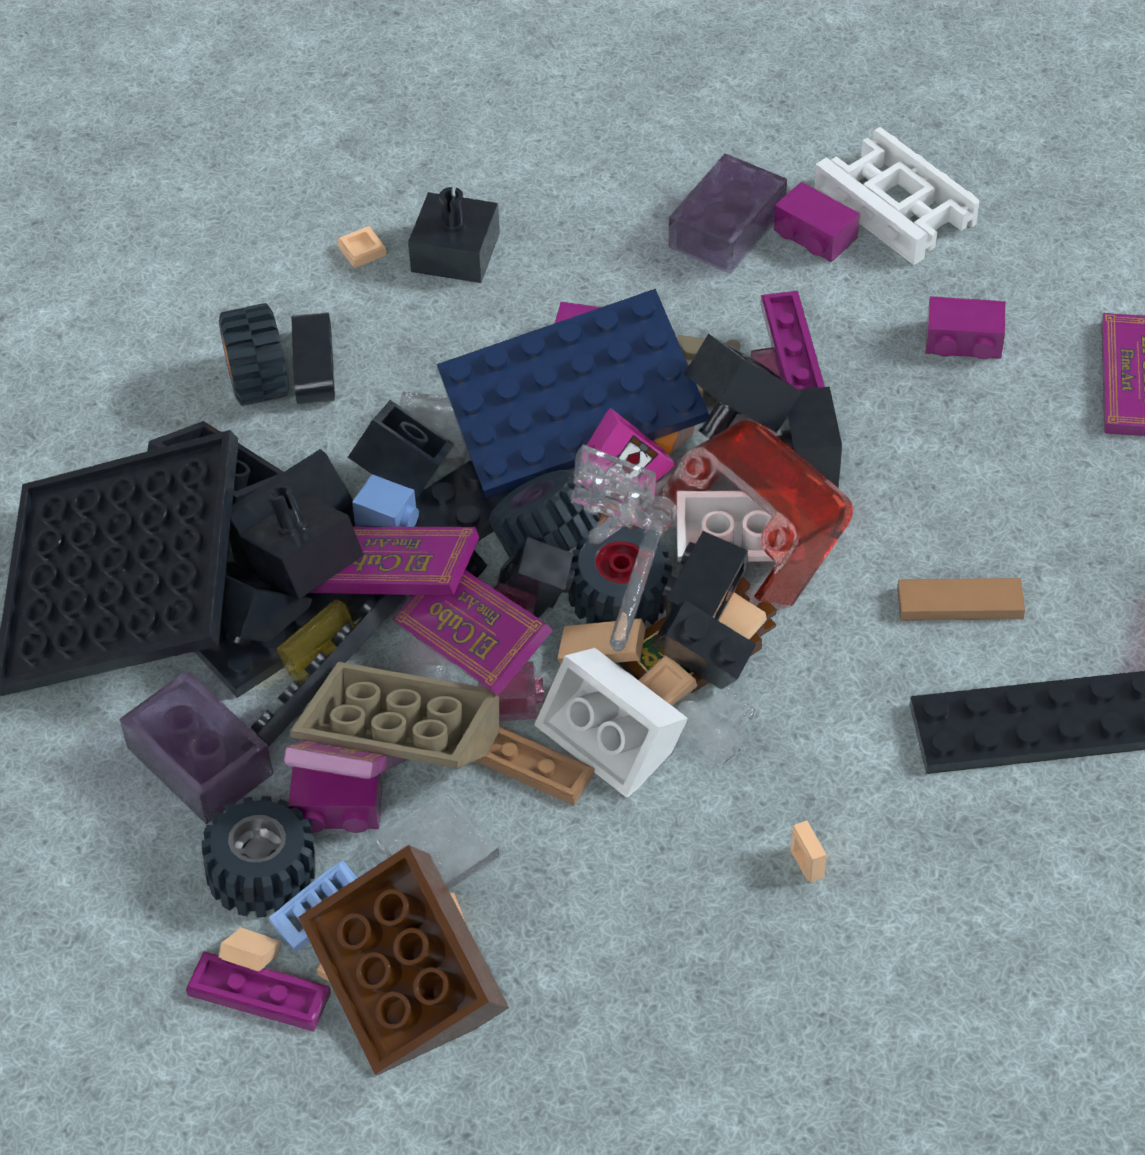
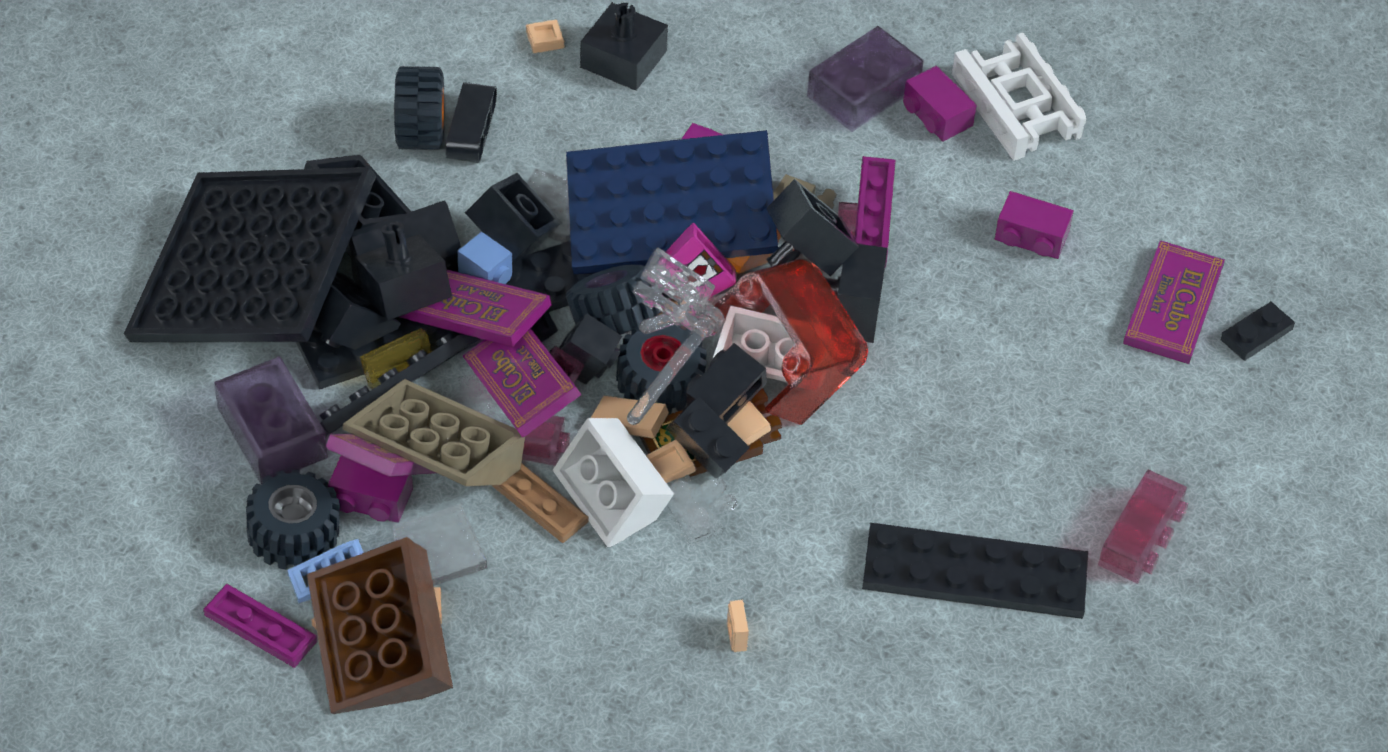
camera: 10 degrees right, 0 degrees up
(249, 949) = (262, 590): light nougat tile -> none
(960, 599) = (944, 453): medium nougat tile -> none

